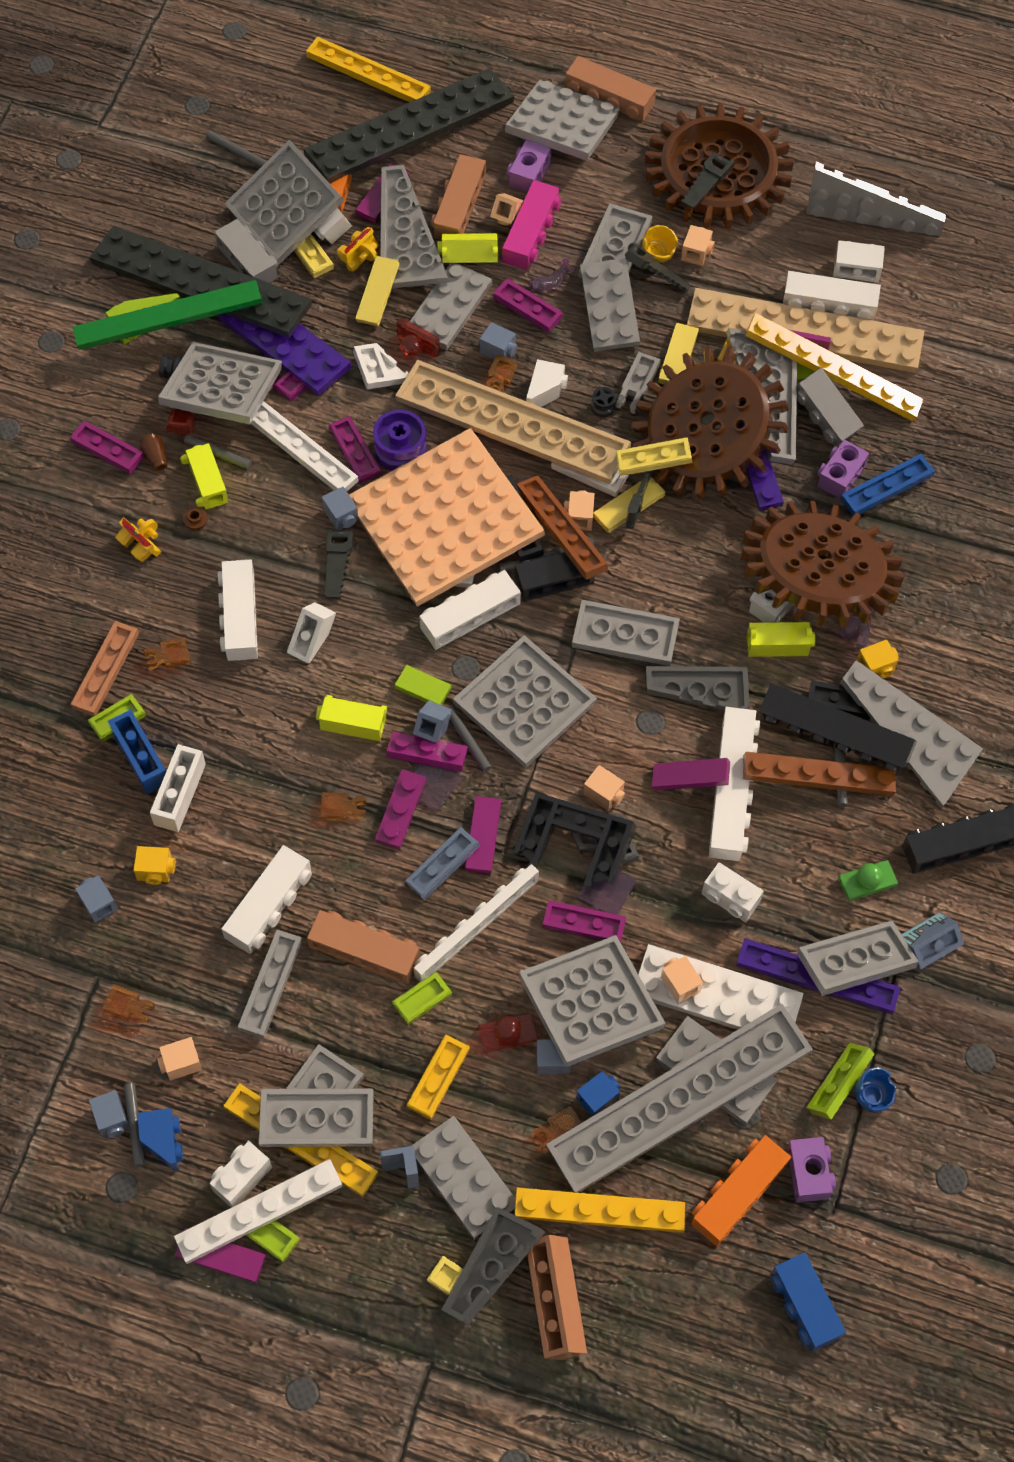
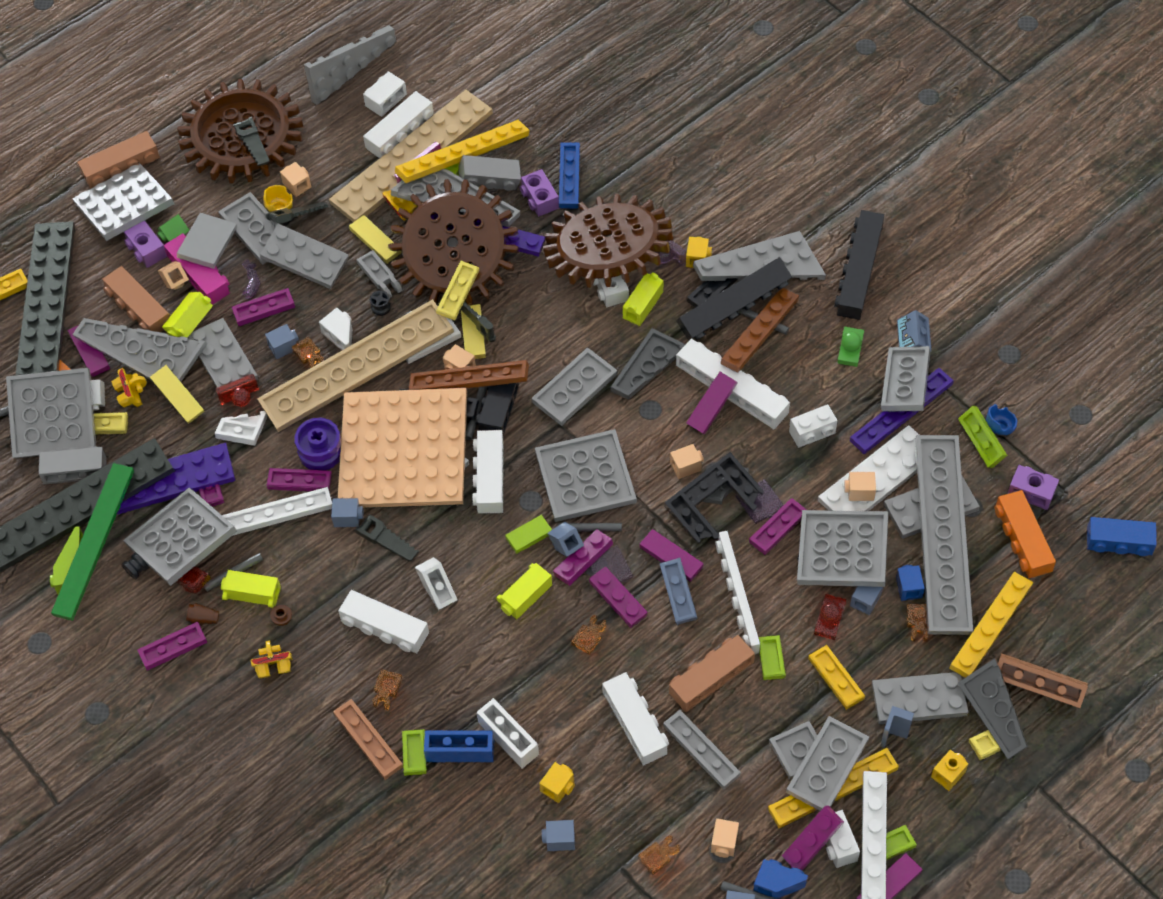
camera: 55 degrees left, 5 degrees down
(220, 1146) = (813, 838): none -> magenta plate
(390, 1252) = (949, 769): none -> yellow brick
(560, 177) = (172, 229): none -> bright green brick
(563, 211) = (206, 240): none -> light grey tile

